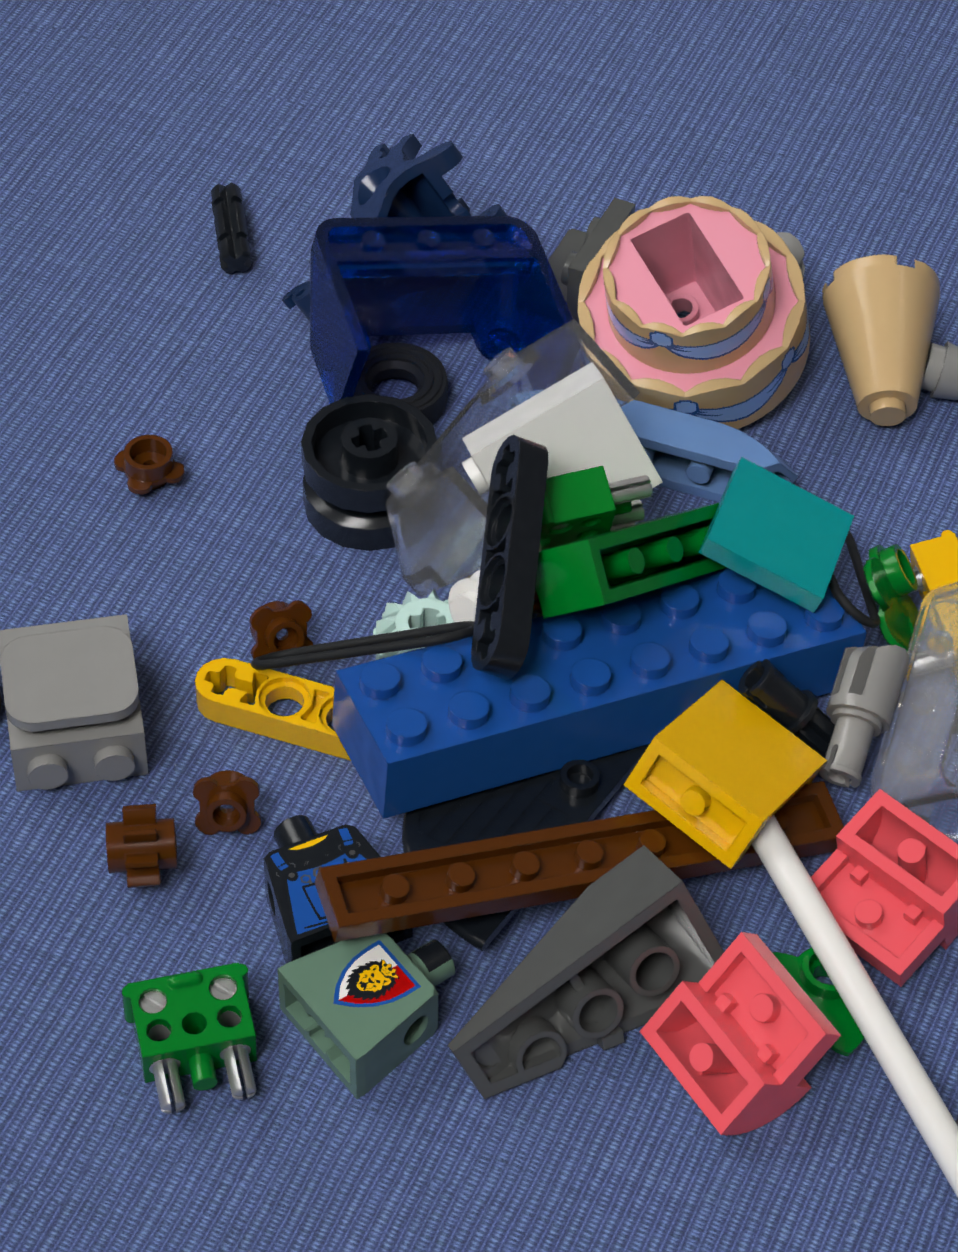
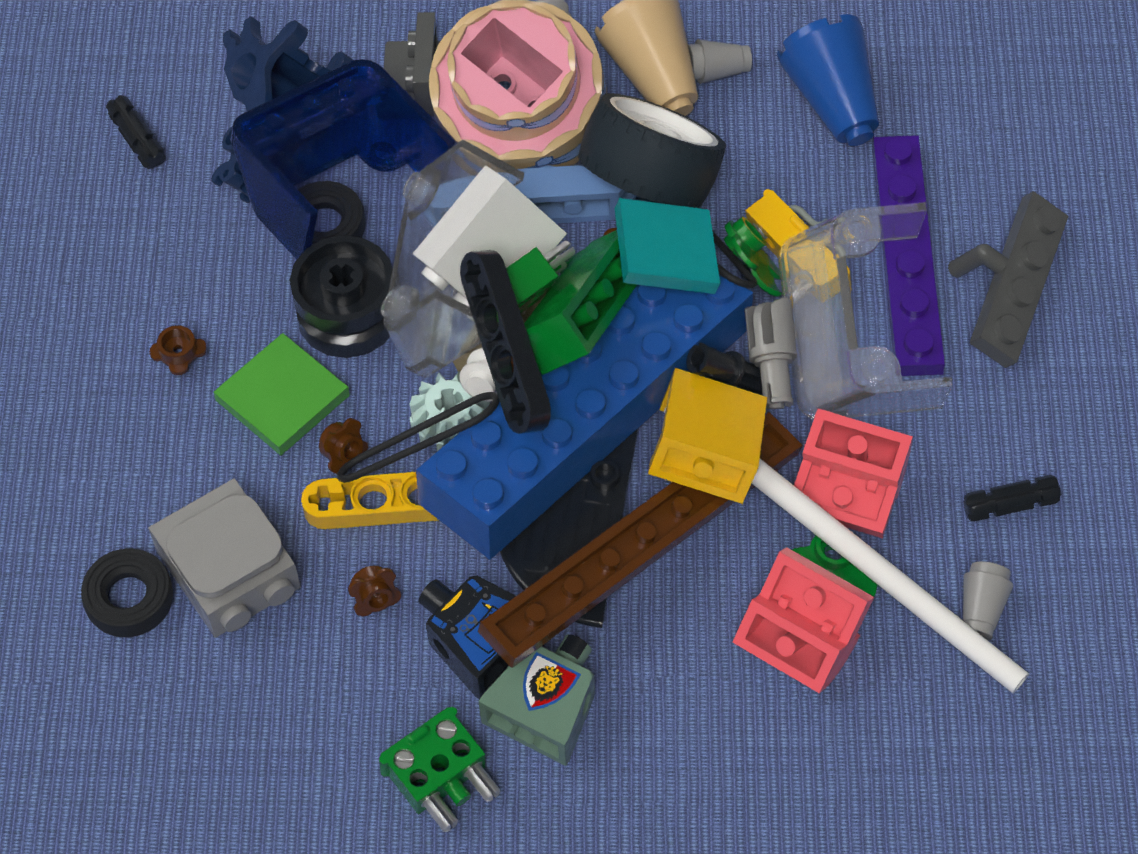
camera: 20 degrees left, 10 degrees up
(141, 845) = (332, 646): reddish brown gear -> none
(242, 555) = (281, 394): none -> bright green tile
(590, 976) = (693, 605): dark grey wedge -> none
(818, 431) = (651, 151): none -> black wheel

